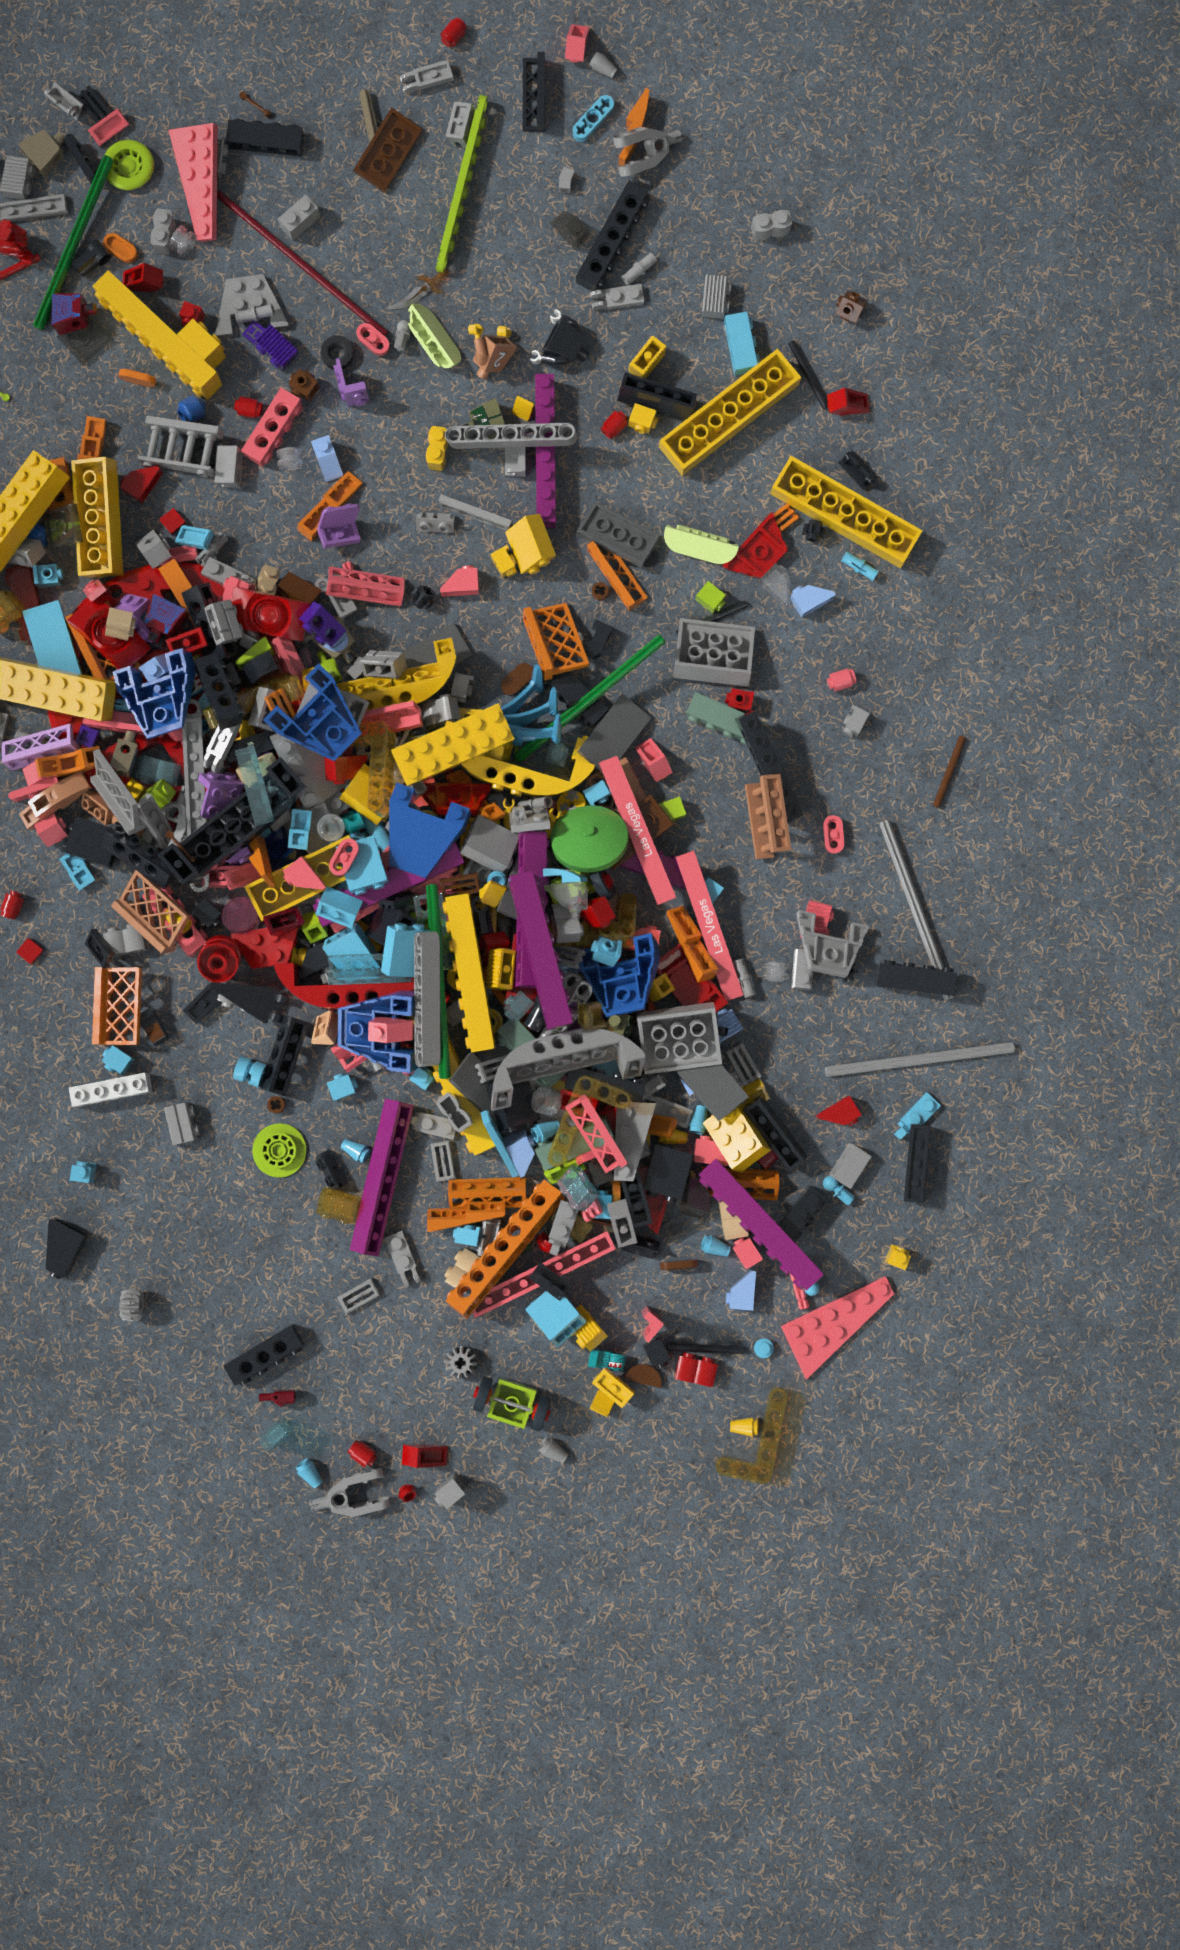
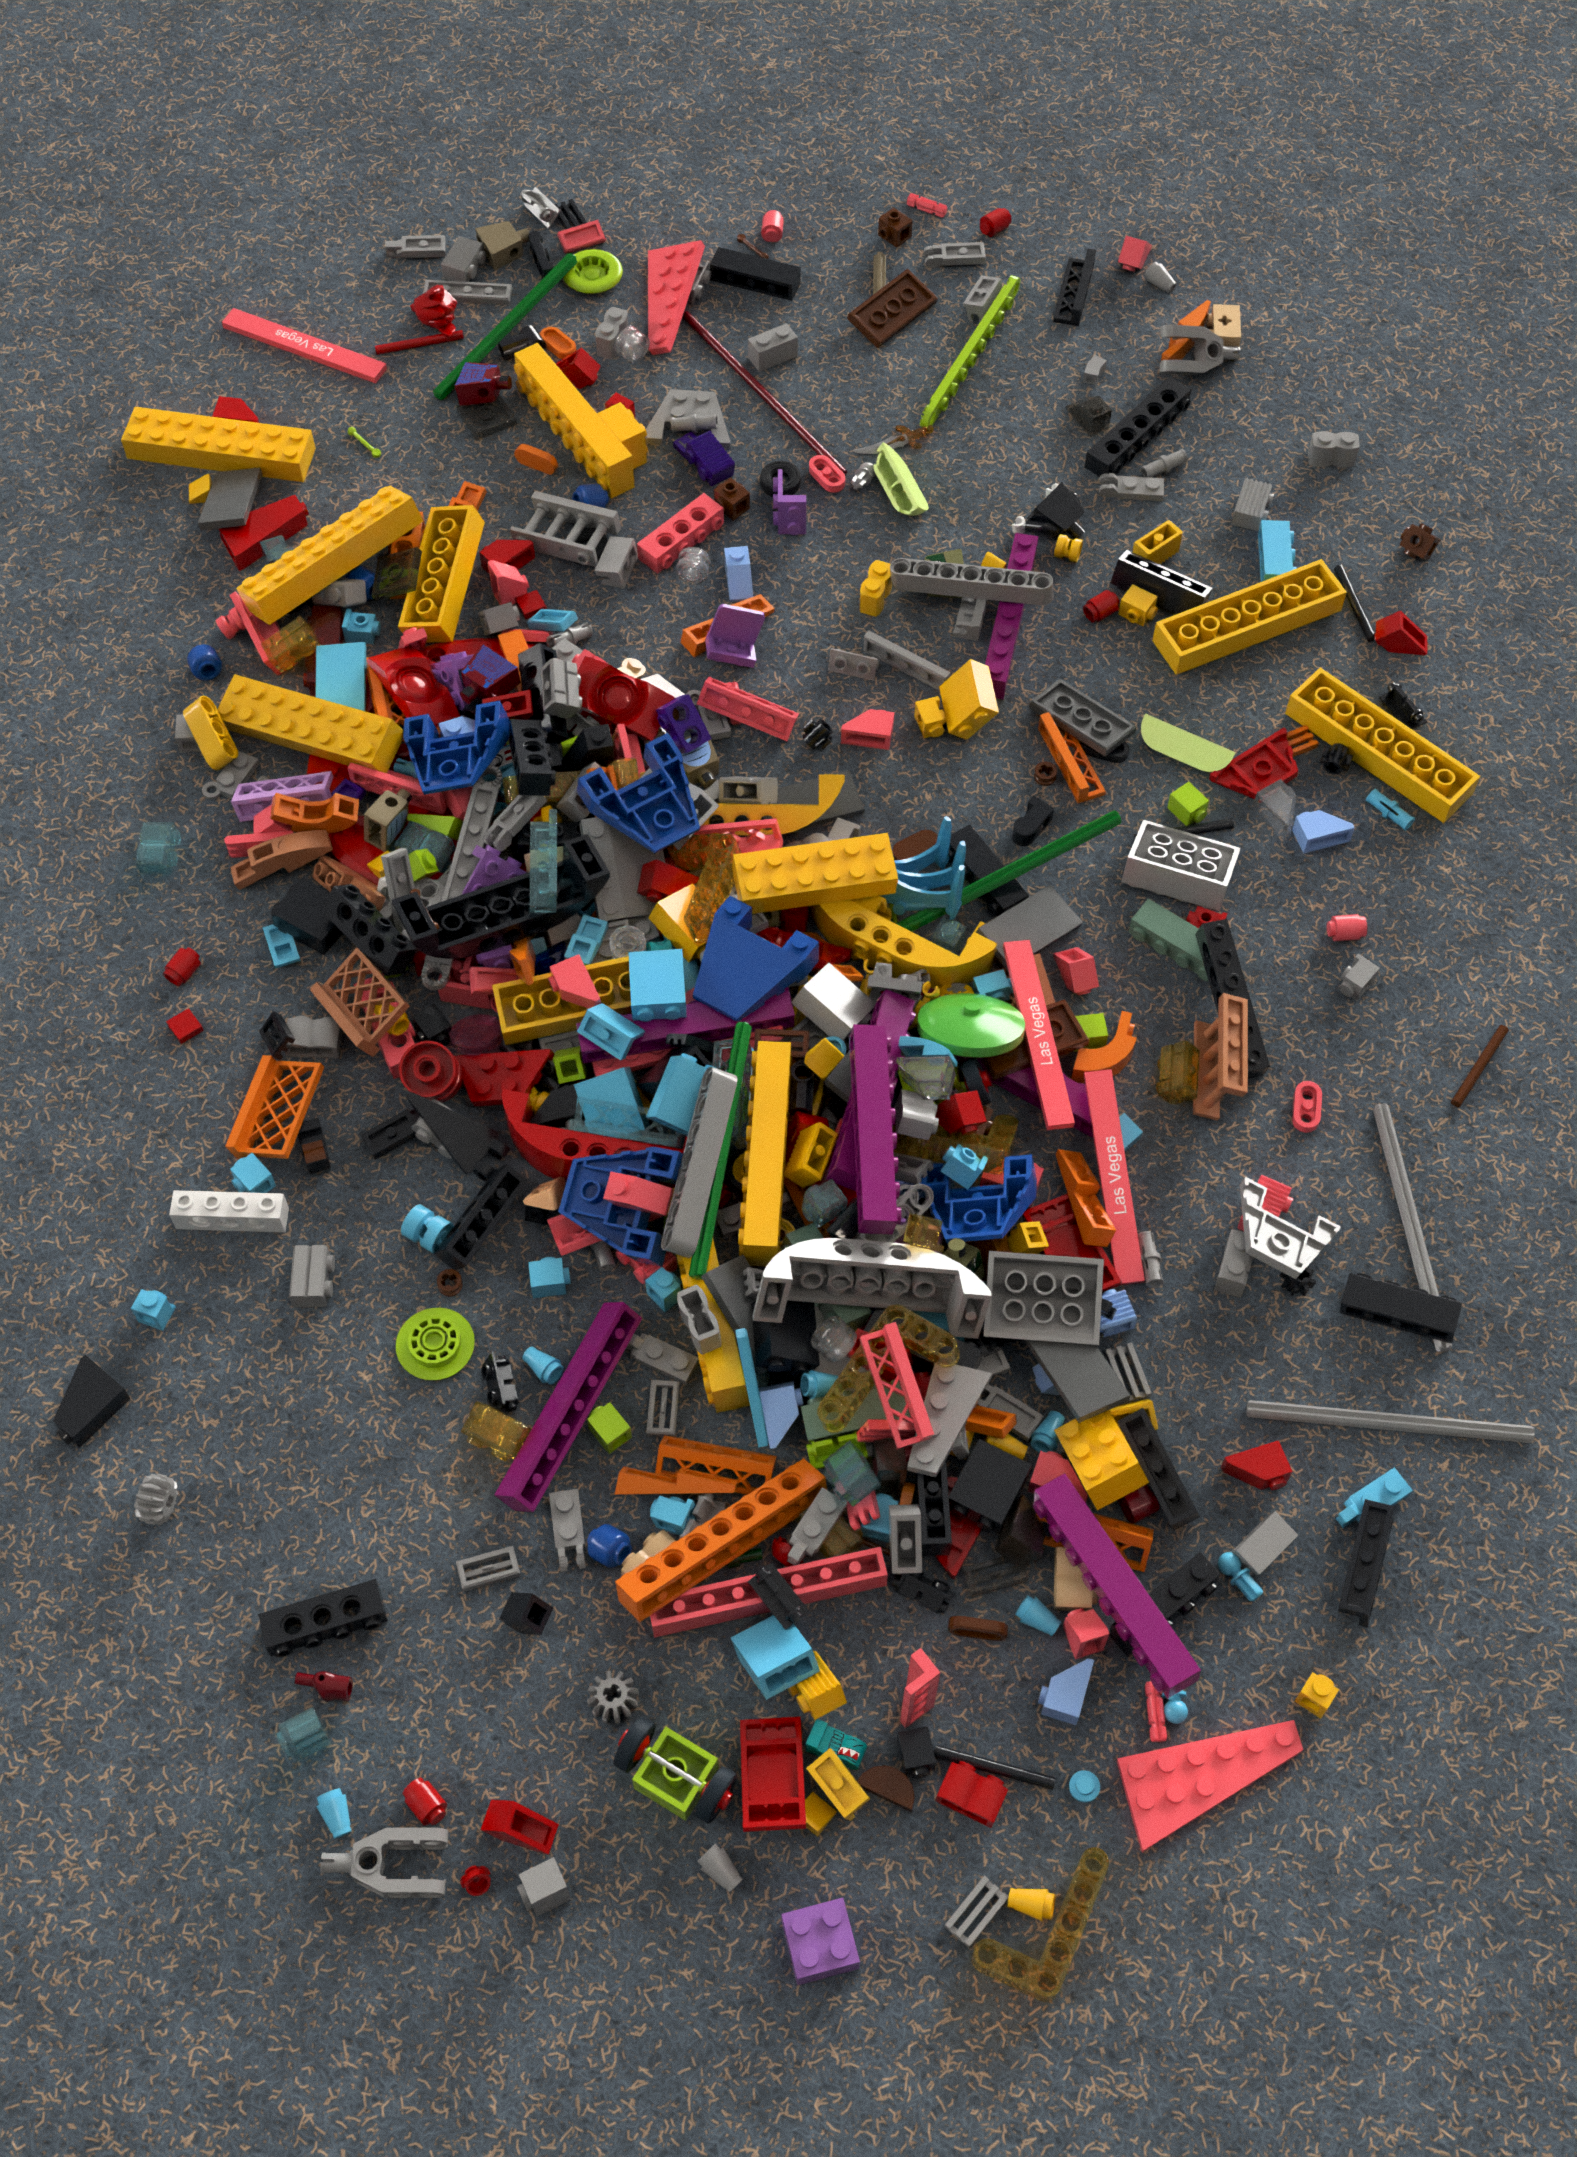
camera: 15 degrees right, 25 degrees down
(51, 830) = (265, 890): coral brick -> none
(116, 795) = (362, 849): light grey fence -> none
(120, 624) = (431, 666): tan brick -> none
(150, 510) = (506, 582): none -> coral slope
(164, 752) = (446, 825): none -> lime slope
(248, 407) = (657, 509): red brick -> none
(266, 79) = (772, 226): none -> coral brick
(283, 921) = (531, 1040): dark red slope -> none
(342, 857) = (633, 962): coral plate -> none
(370, 60) = (895, 227): none -> reddish brown brick
(391, 24) = (926, 205): none -> coral axle
(392, 1323) = (526, 1613): none -> black brick
(410, 1184) = (609, 1427): none -> lime brick
(432, 1265) = (608, 1545): none -> blue head
(491, 350) = (966, 502): nougat torso -> none
(539, 640) = (957, 807): orange fence -> none
(571, 1389) = (772, 1774): none -> red slope
(574, 373) = (1068, 548): none -> yellow wheel
(591, 127) = (1145, 315): medium azure beam -> none
(623, 1481) = (820, 1941): none -> medium lavender brick
(664, 101) = (1225, 323): none -> tan brick
(689, 831) = (1112, 1056): none -> orange arch
(705, 1453) = (993, 1890): none -> light grey tile
(740, 830) = (1178, 1072): none -> clear yellow brick
(775, 971) = (1196, 1257): clear wheel -> none

